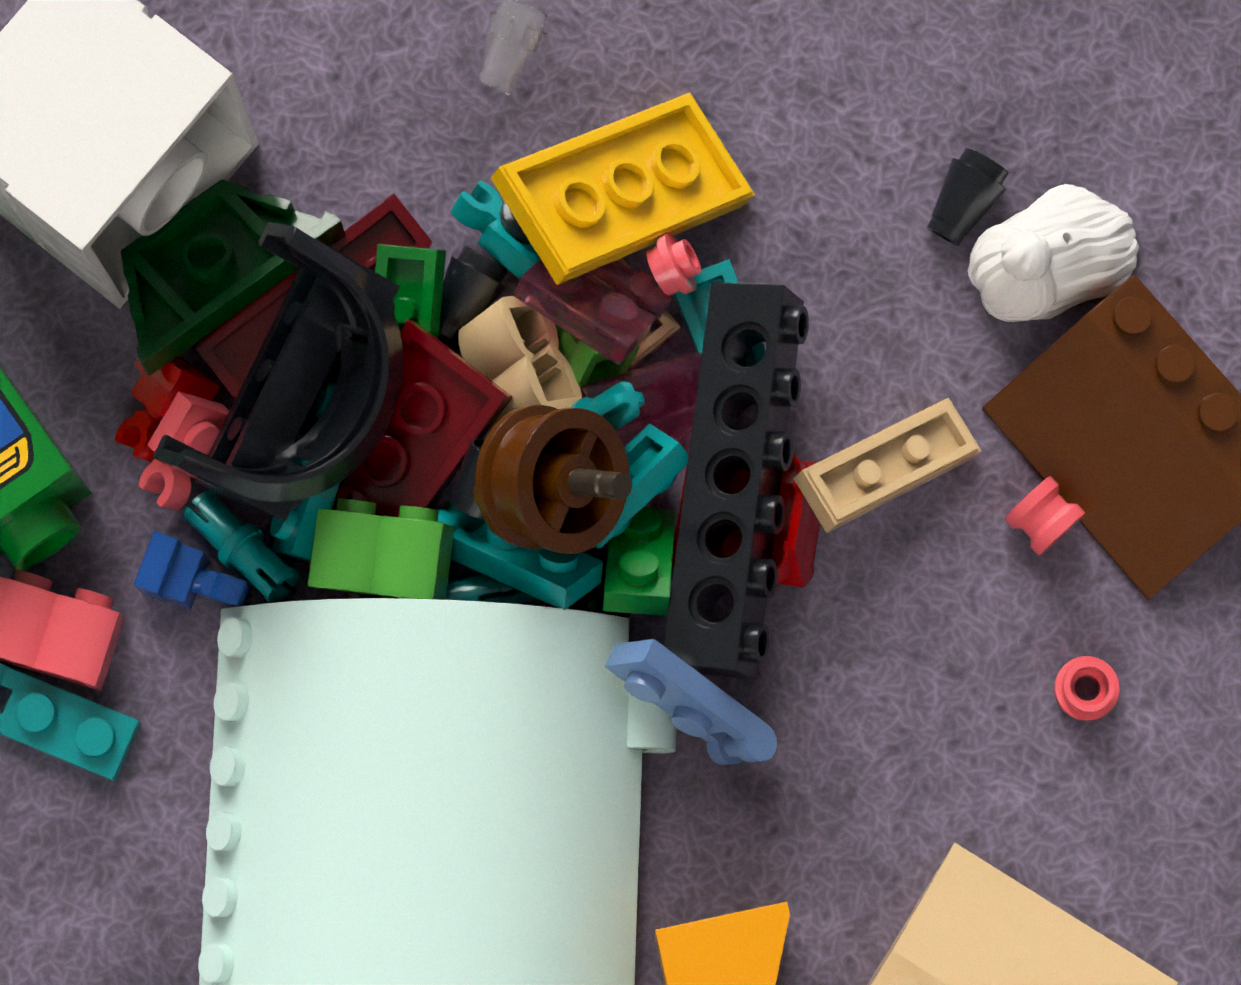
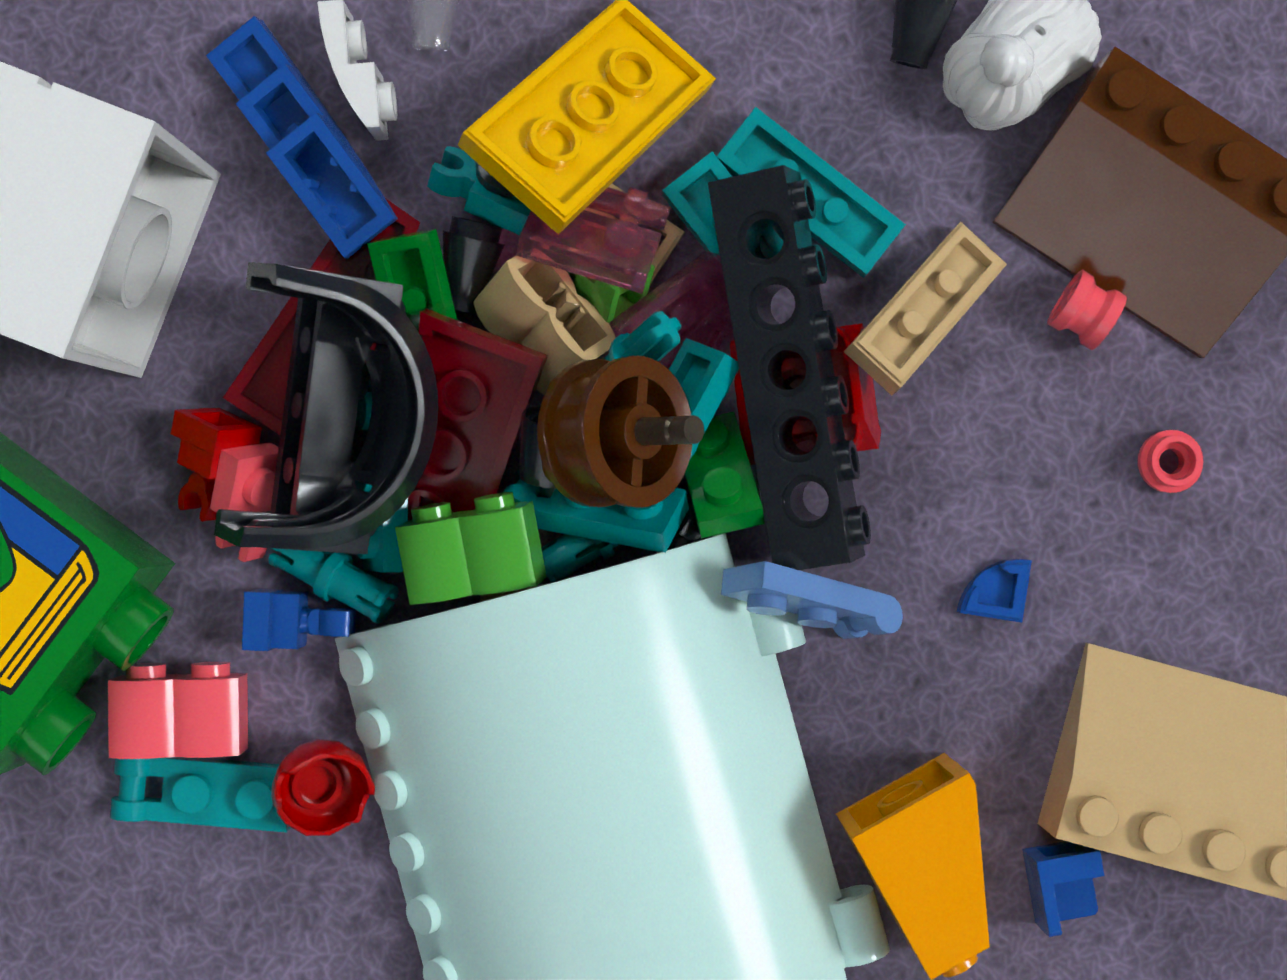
camera: 20 degrees left, 10 degrees up
(163, 743) = (321, 788): none -> red hair
(208, 266) = (202, 319): dark green wing -> none
(348, 131) = (302, 137): none -> blue slope
(420, 99) = (360, 82): none -> white slope
(674, 265) = (663, 175): coral plate -> none
(833, 352) = (846, 217): none -> teal plate
(880, 764) = (998, 591): none -> blue tile

